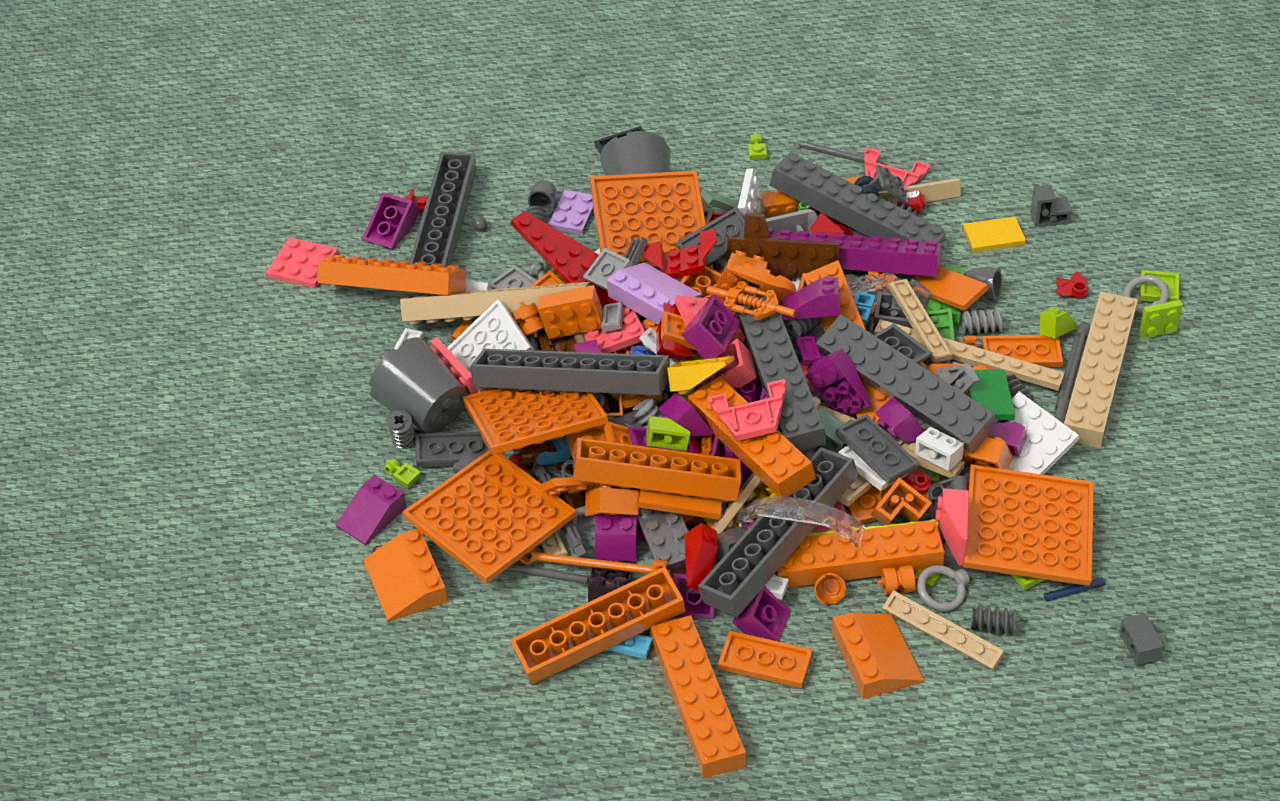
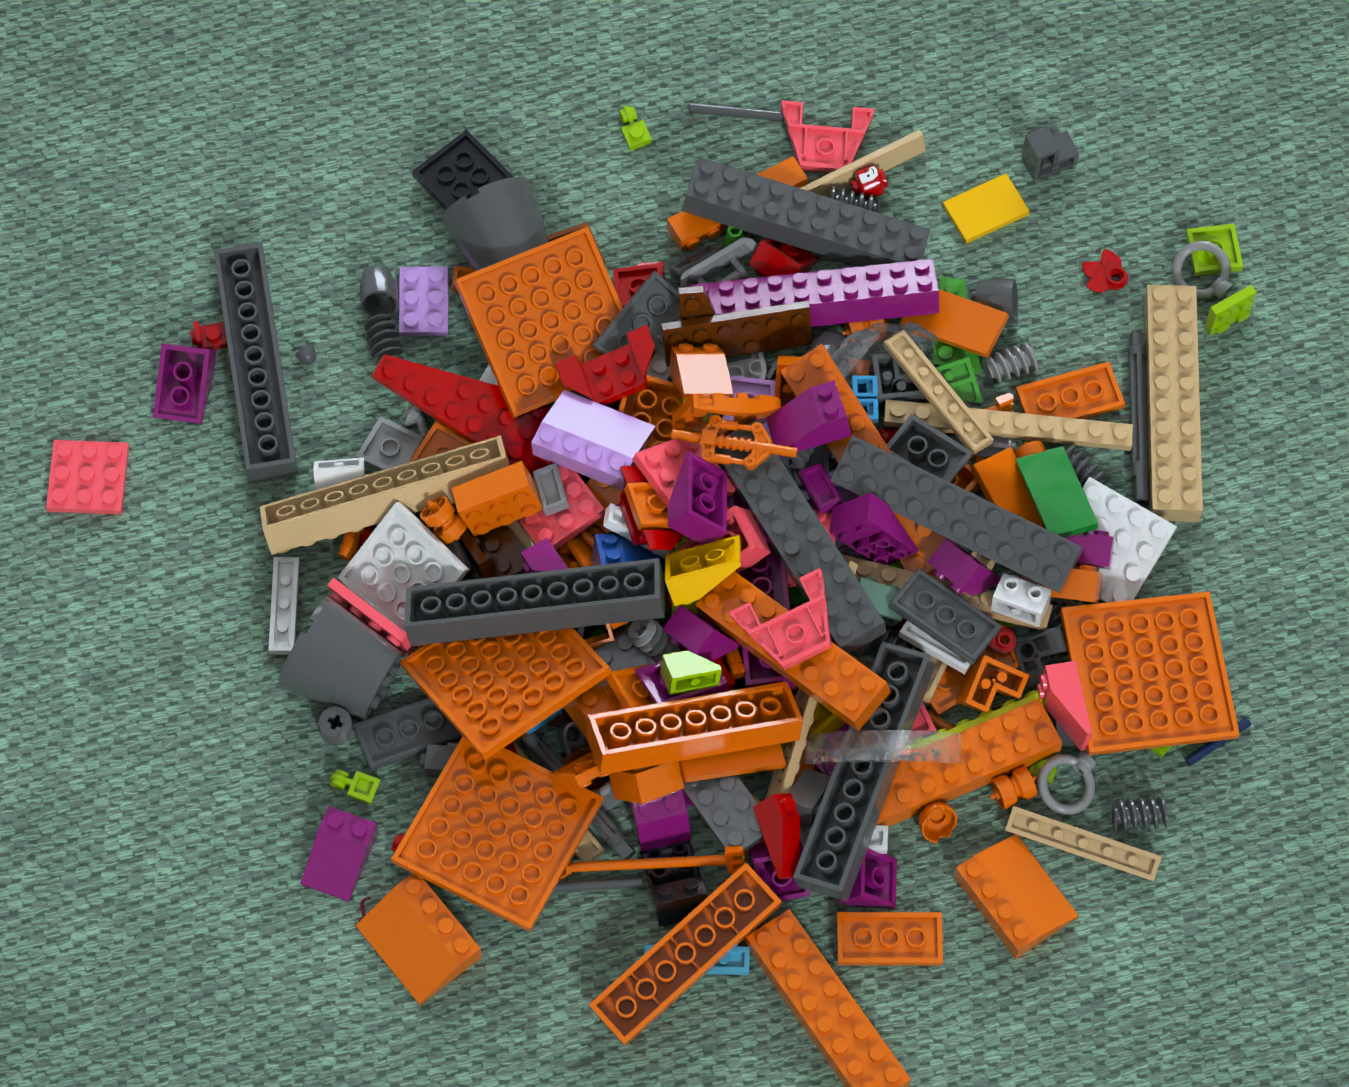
camera: 20 degrees left, 20 degrees up
(392, 275) = (232, 487): orange brick -> none
(604, 267) = (519, 415): light grey plate -> none
(636, 250) = (543, 384): dark grey tile -> none
(718, 200) = (636, 254): sand green tile -> none
(750, 194) = (664, 245): white plate -> none
(883, 182) = (837, 170): dark grey plate -> none
(959, 376) = (1012, 483): light grey wing -> none
(1055, 323) = (1103, 349): lime slope -> none
(1141, 639) = (1312, 796): dark grey brick -> none

